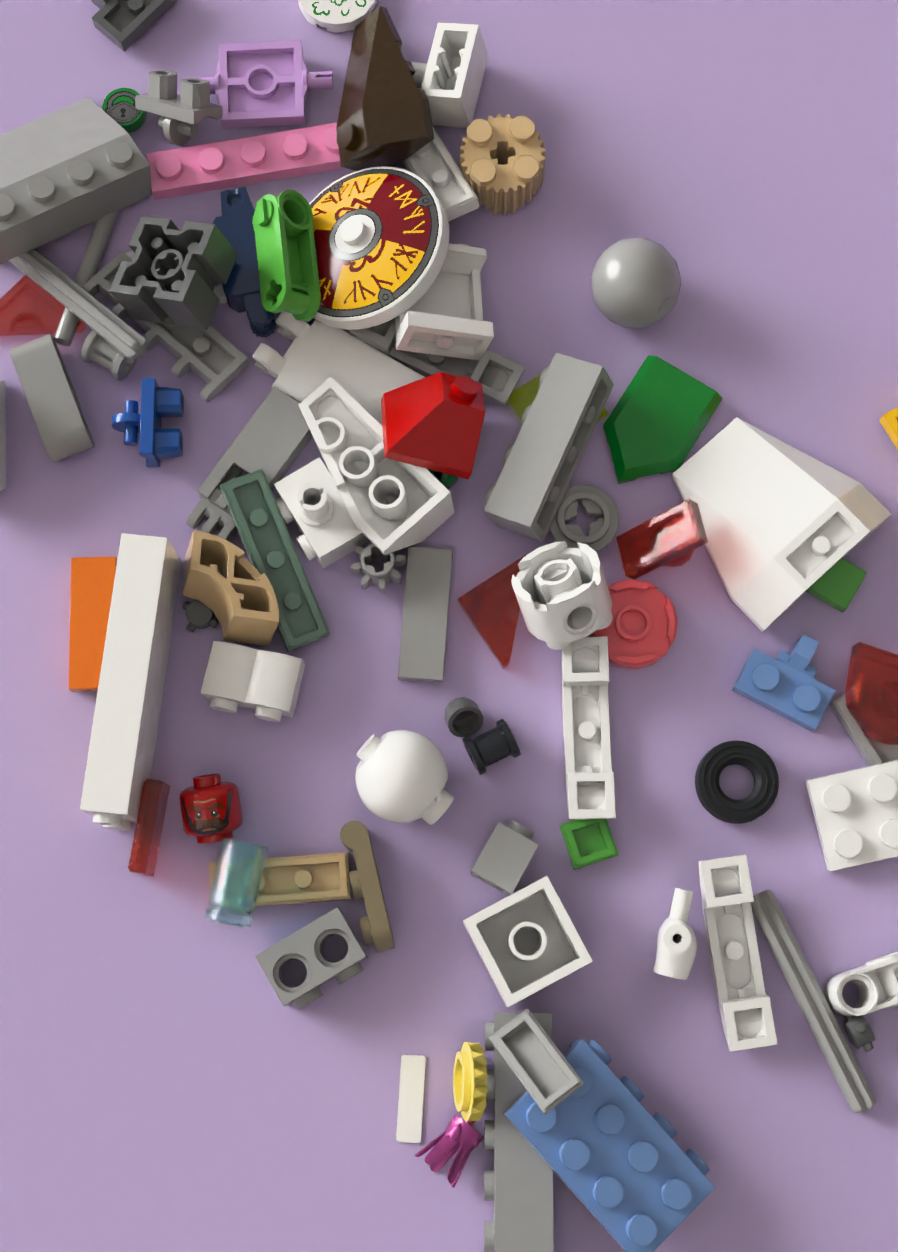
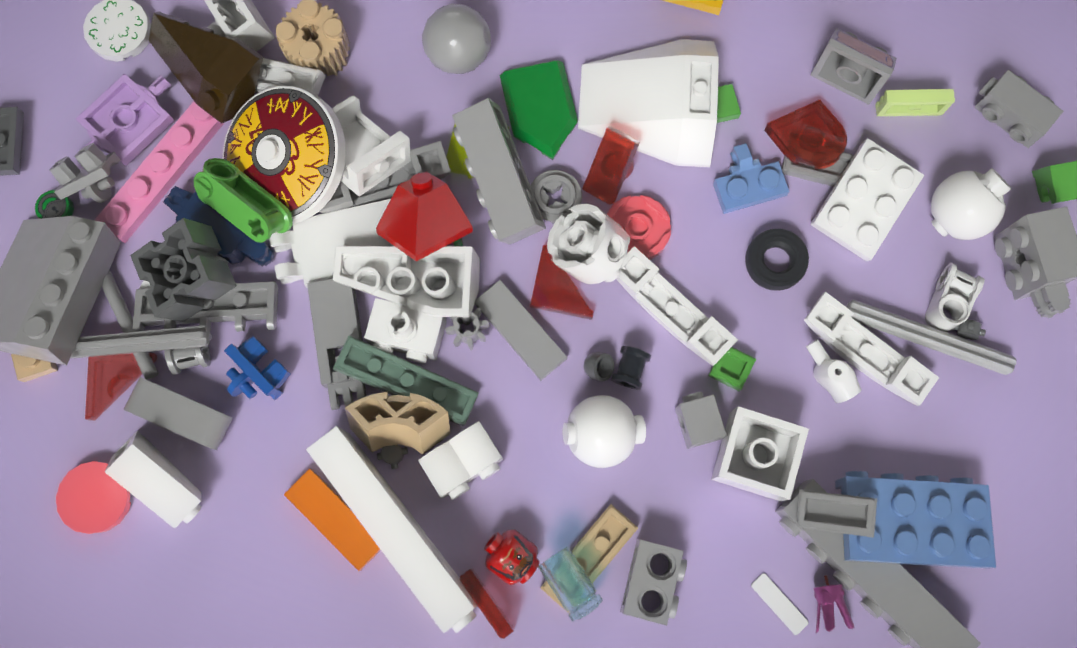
camera: 45 degrees left, 0 degrees up
(367, 885) = (641, 510): dark tan plate -> none
(470, 1081) = (807, 561): light yellow gear -> none

